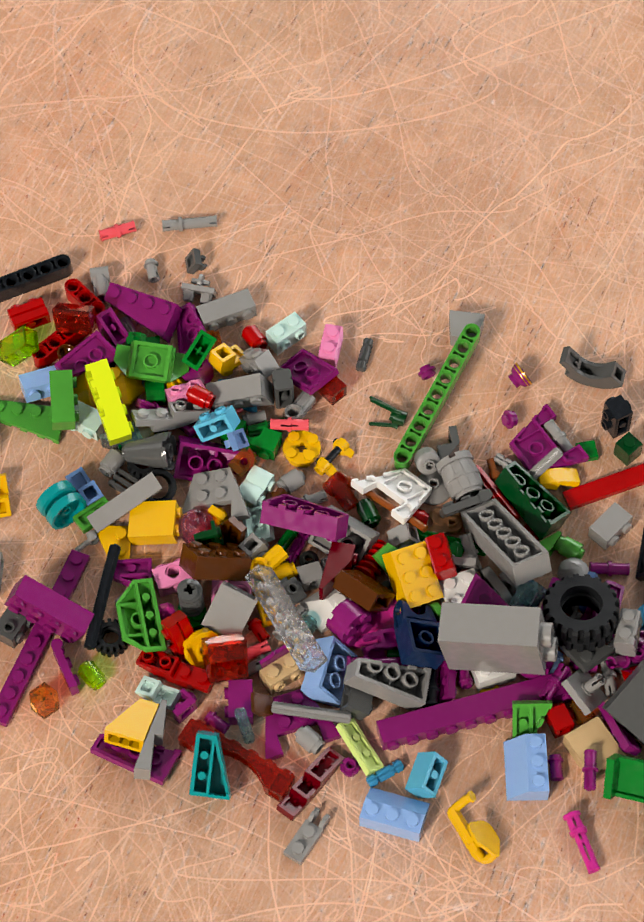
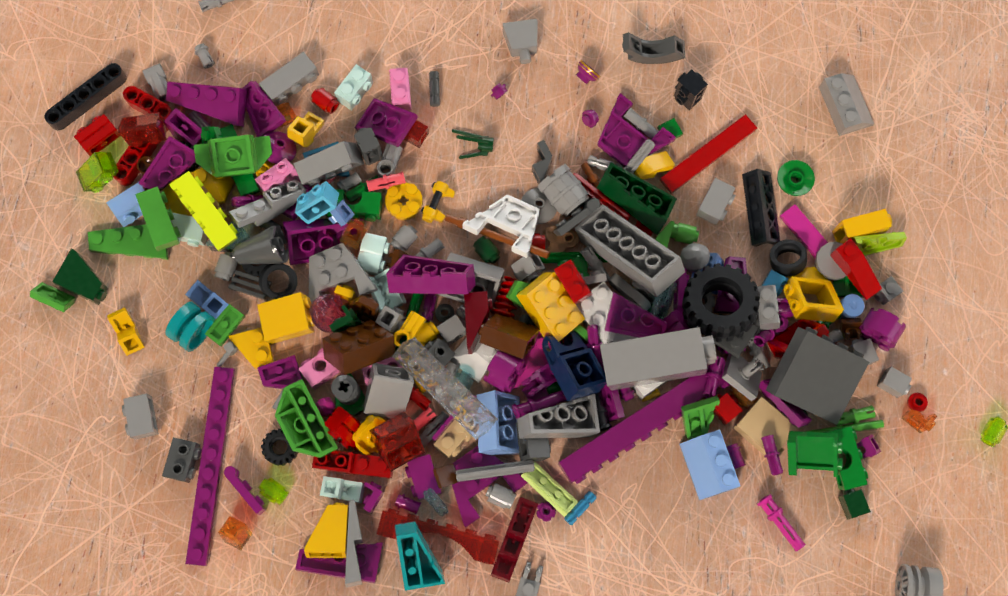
camera: 20 degrees left, 15 degrees up
(49, 609) = (211, 442): magenta brick -> none
(102, 596) = (259, 411): black axle -> none
(117, 230) = (157, 23): coral pin -> none
(124, 502) = (251, 308): light grey slope -> none
(190, 290) = (247, 67): light grey hips -> none
(194, 261) = (242, 35): dark grey tile -> none
(199, 350) = (276, 131): green slope -> none
(200, 396) = (292, 179): red brick -> none
(258, 361) = (337, 126): light grey brick -> none
(337, 487) = (450, 232): clear red piece -> none
(393, 814) = (601, 545): light blue slope -> none
(426, 460) = (526, 182): light grey head -> none
(426, 774) = (621, 501): medium azure brick -> none
(441, 389) = (517, 106): bright green beam -> none
(476, 833) = (688, 548): yellow piece -> none
(610, 568) = (726, 243): magenta pin -> none
(628, 448) = (708, 118): dark green brick -> none

